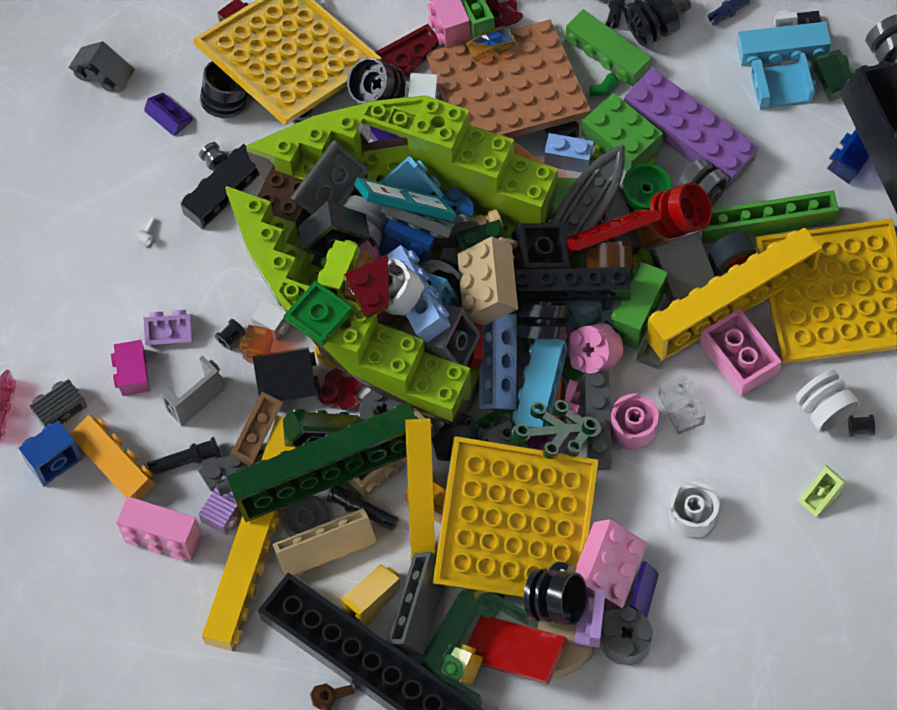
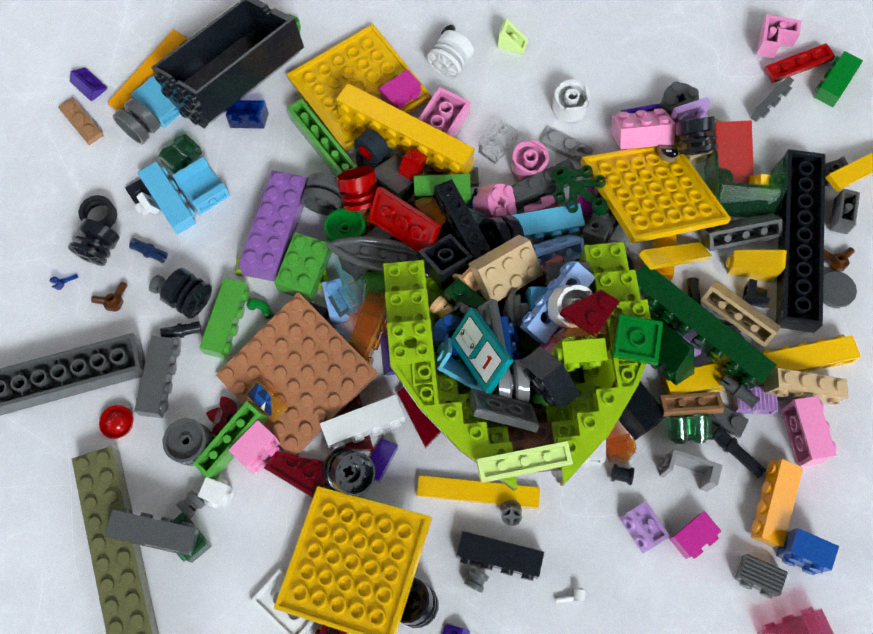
camera: 120 degrees left, 5 degrees up
(205, 553) = (803, 385): none -> tan brick
(233, 419) = (690, 427): none -> clear green brick
(262, 156) = (524, 462): none -> yellowish green plate
(293, 677) = (838, 289): none -> dark grey tile
(338, 580) = (754, 295): none -> black panel
(556, 152) = (349, 298): none -> clear light blue slope
(640, 481) = (565, 145): none -> light grey hinge
(685, 281) = (412, 164): none -> red brick
(800, 321) = (401, 90): none -> dark pink brick

